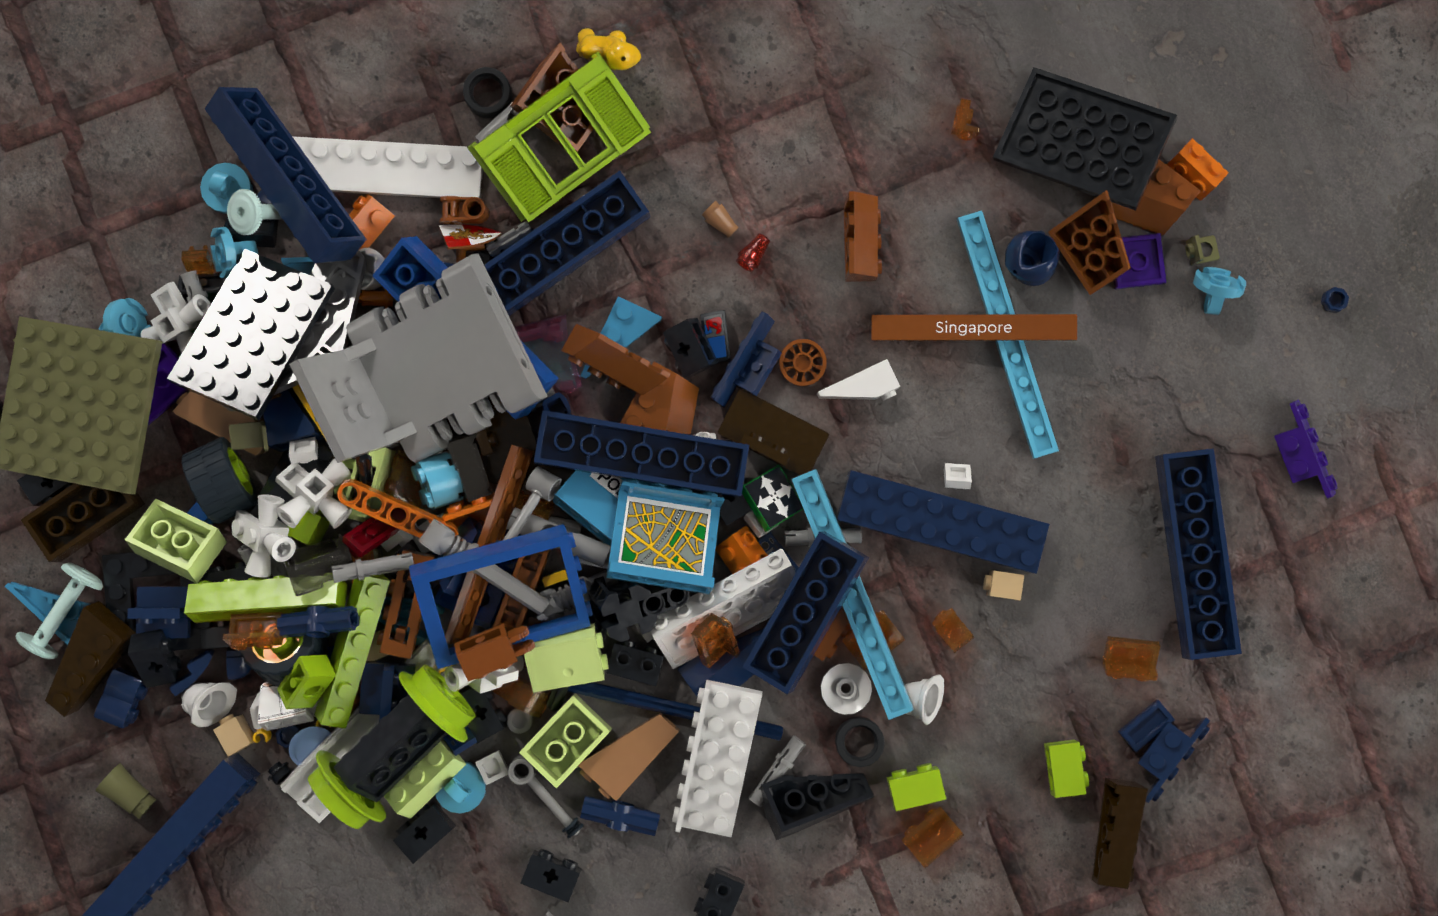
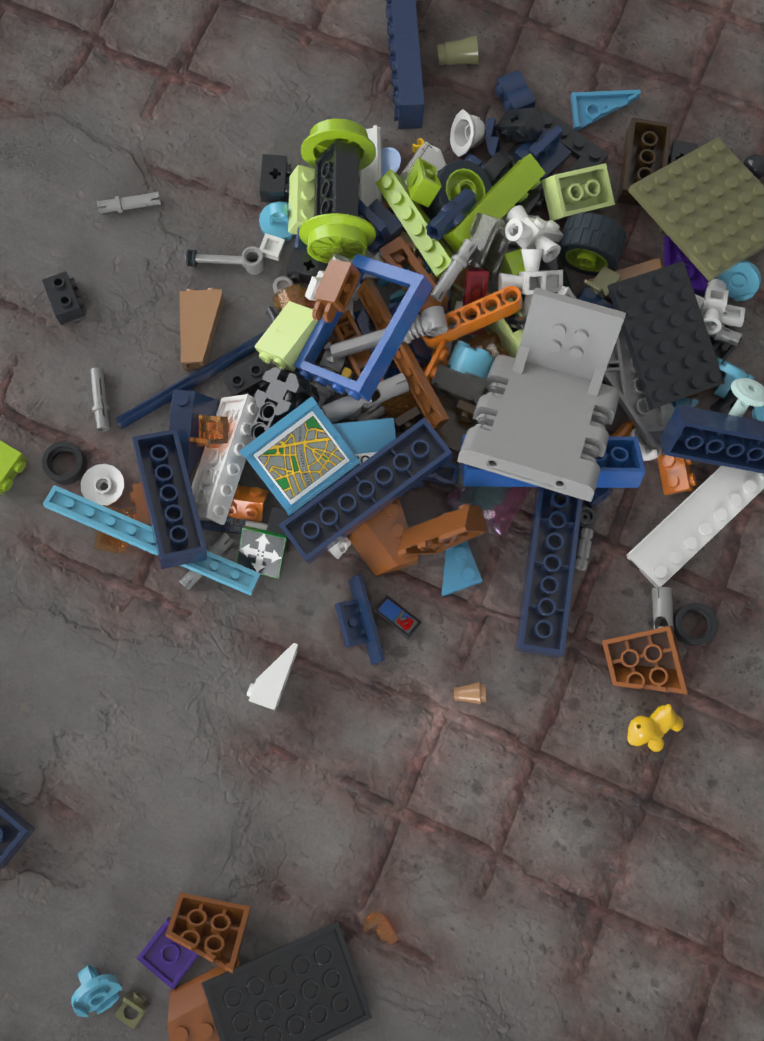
camera: 125 degrees right, 10 degrees down
(40, 646) = (588, 77): light aqua hose -> none
(90, 655) = (555, 93): dark brown wedge -> none
(198, 260) = (742, 354): clear orange tile -> none
(234, 734) = (434, 131): tan brick -> none
(253, 631) = (482, 179): clear orange bracket -> none
(279, 772) = (388, 136): black plate -> none
(285, 735) = (406, 156): dark blue tile -> none
(458, 210) = (630, 535): dark orange piece -> none
(467, 238) = (609, 523): shield -> none
(516, 168) = (618, 686): lime piece -> none
(537, 875) = (181, 213): black brick -> none
(542, 486) = (406, 414): light grey piece -> none
(565, 740) = (243, 297): yellowish green brick -> none
(620, 815) = (169, 289): dark blue piece -> none
(686, 335) = (405, 592): black brick -> none
(717, 758) = (143, 369): white bracket -> none
(752, 254) = (428, 692): clear red cone -> none
(773, 433) = (300, 592): dark brown bracket -> none
(802, 362) = (327, 656): dark orange wheel -> none
(804, 801) = (63, 399): black wedge -> none
(862, 237) = (368, 772): dark orange wedge -> none
(926, 697) = (47, 525): white piece -> none
(942, 522) = (136, 644): dark blue brick -> none
(952, 629) = (68, 583): clear orange bracket -> none
(957, 476) = (156, 682): white plate -> none
(975, 327) = (235, 791): dark orange tile -> none
(1004, 584) = (60, 643): tan brick -> none
(1012, 353) = (212, 809): medium azure plate -> none
(1032, 257) = (243, 877): dark blue piece -> none

